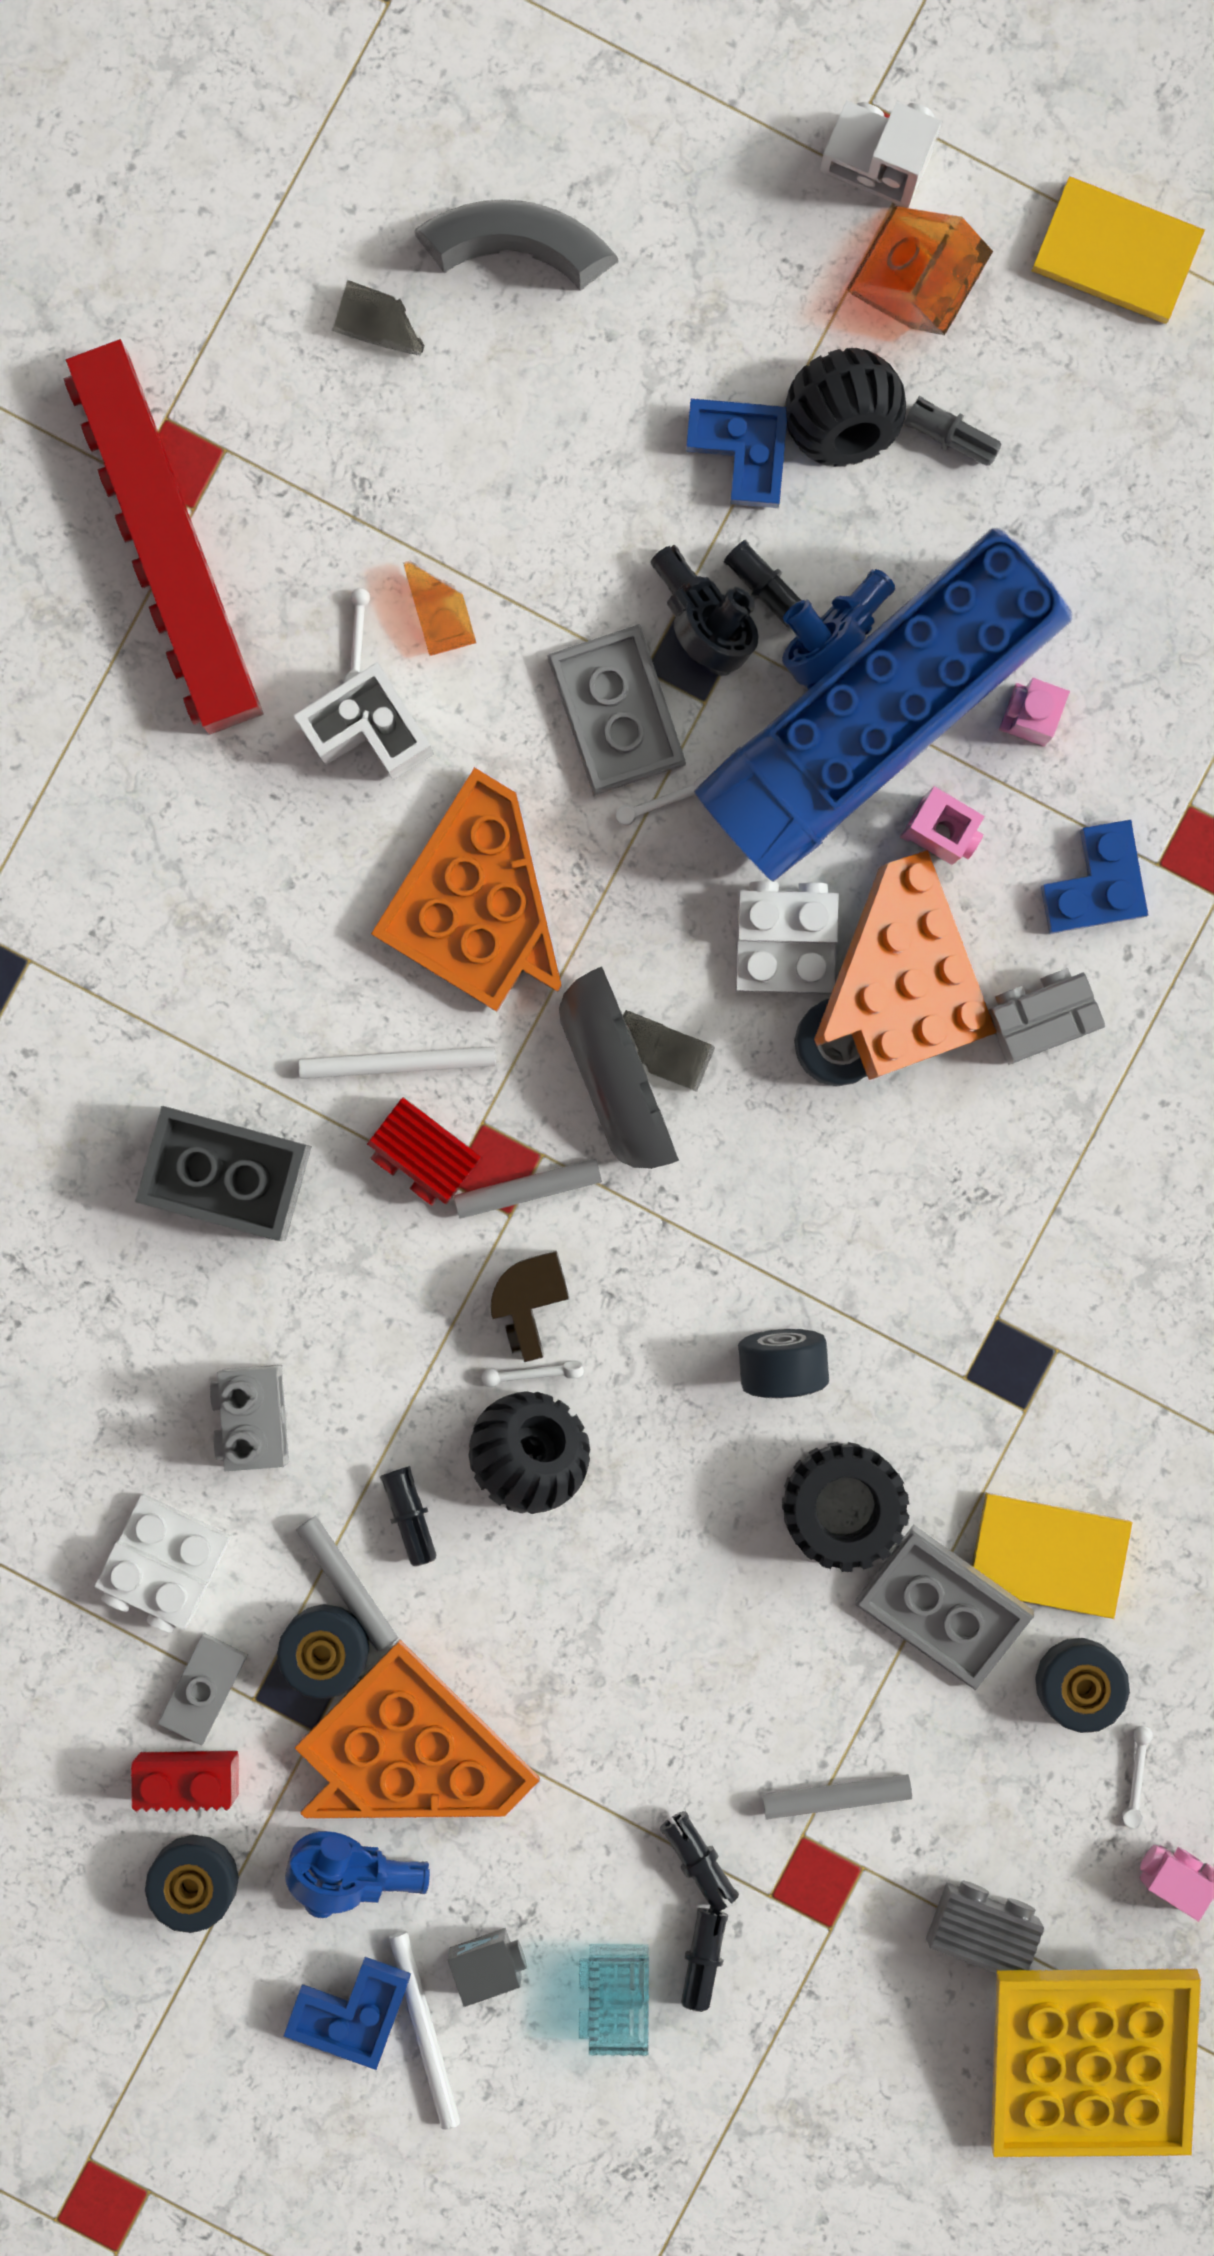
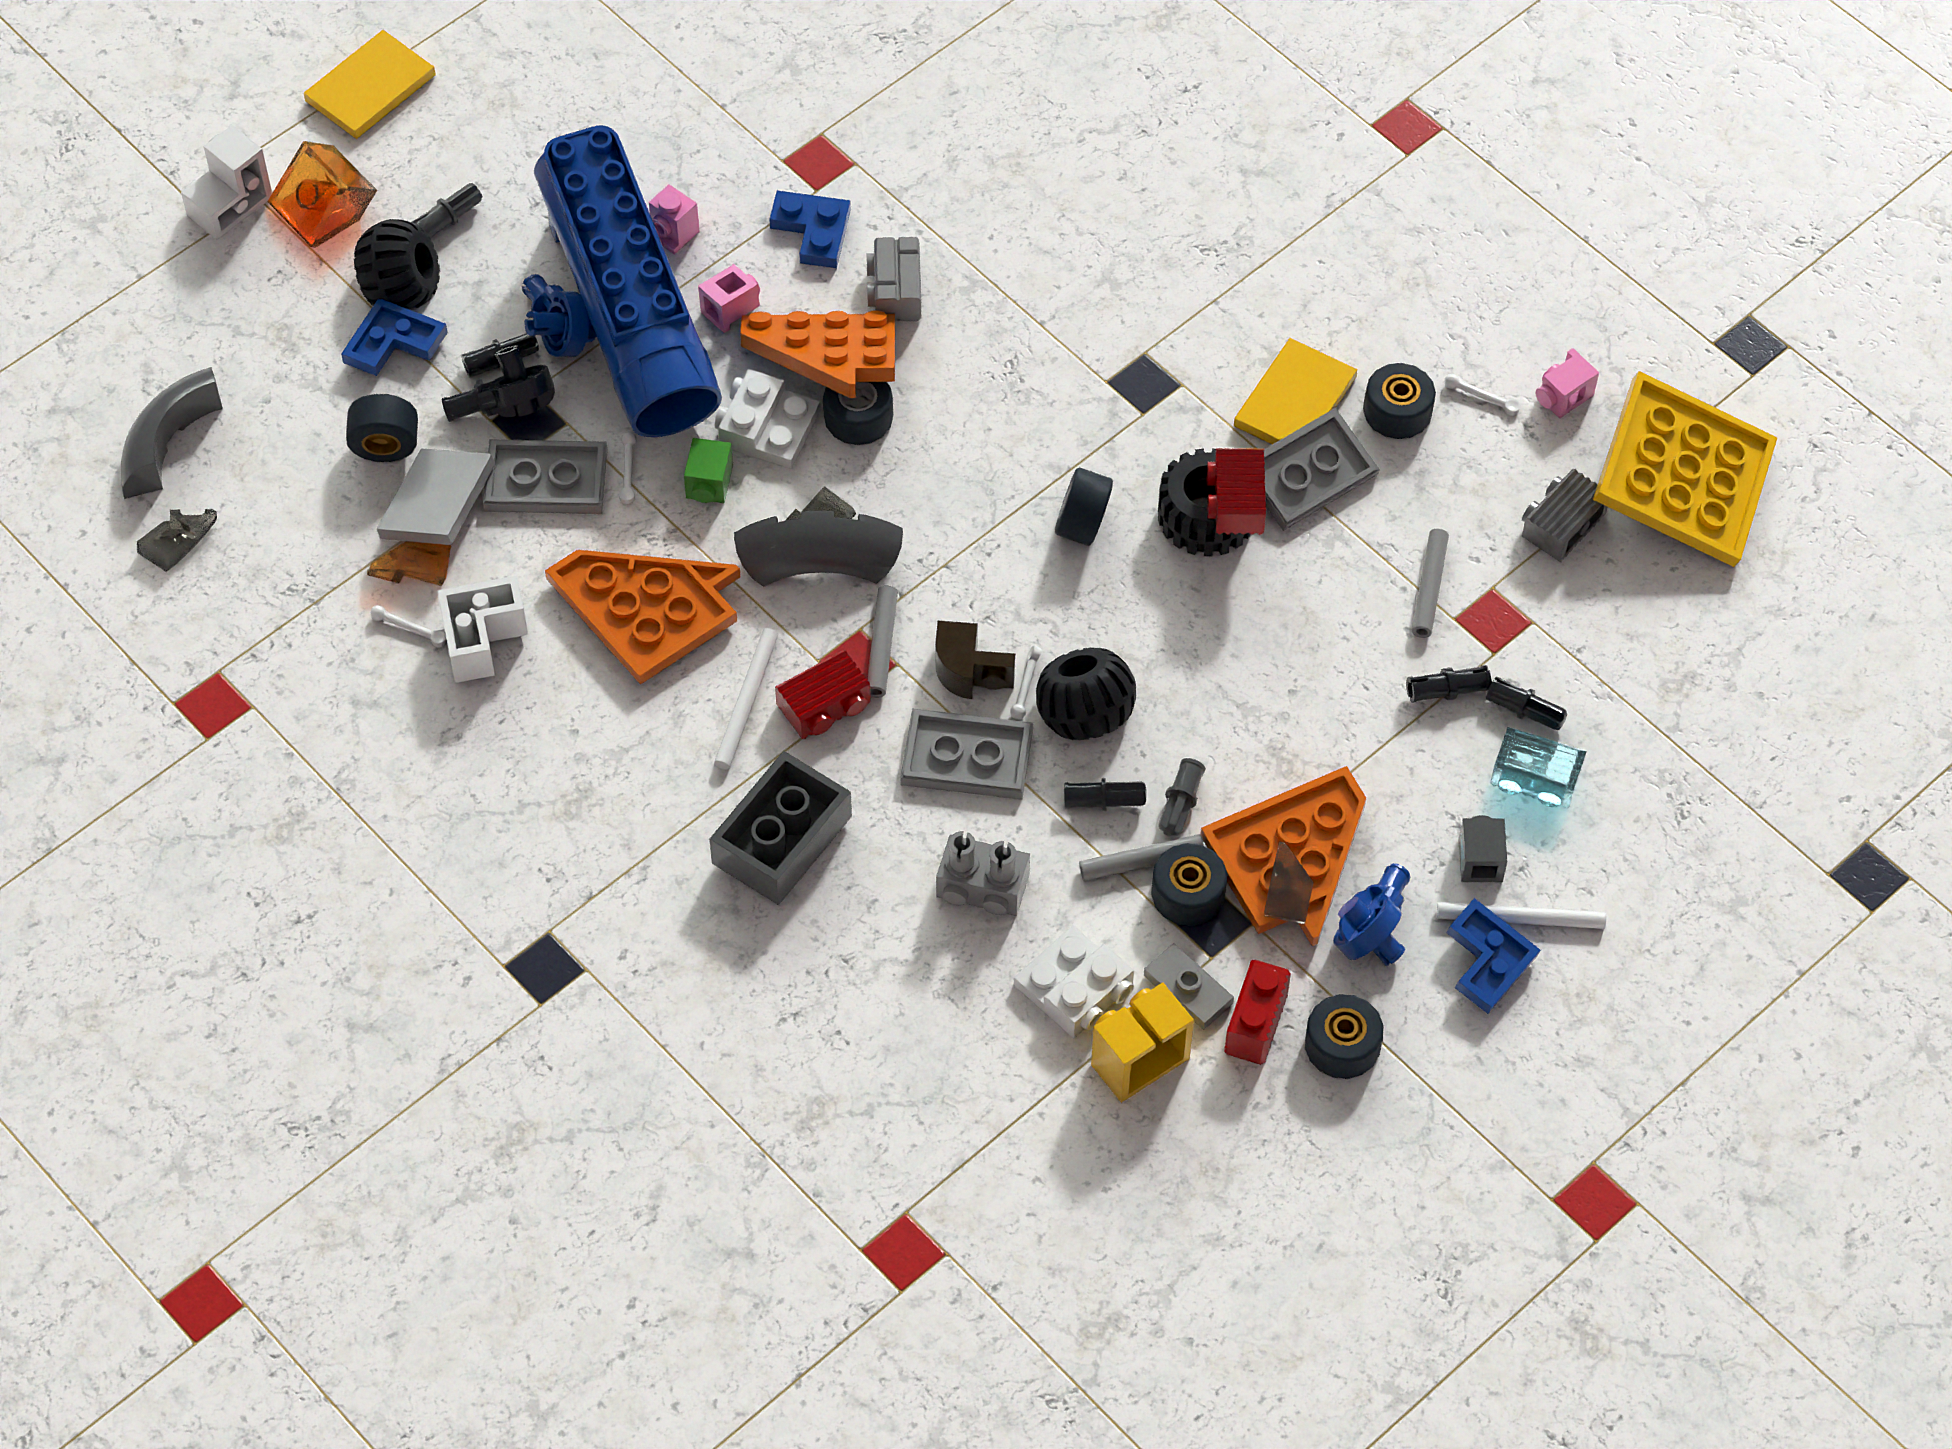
camera: 70 degrees left, 30 degrees down
(94, 1663) = (1141, 1041): none -> yellow piece
(163, 536) = (266, 721): red brick -> none
(343, 1772) = (1289, 888): none -> clear smoke slope
(414, 1339) = (967, 754): none -> light grey tile
(437, 1603) = (1181, 796): none -> dark grey axle
(527, 599) = (436, 496): none -> light grey tile
(594, 495) = (382, 428): none -> black wheel
(681, 900) = (708, 470): none -> bright green brick
(840, 1552) = (1239, 490): none -> red brick

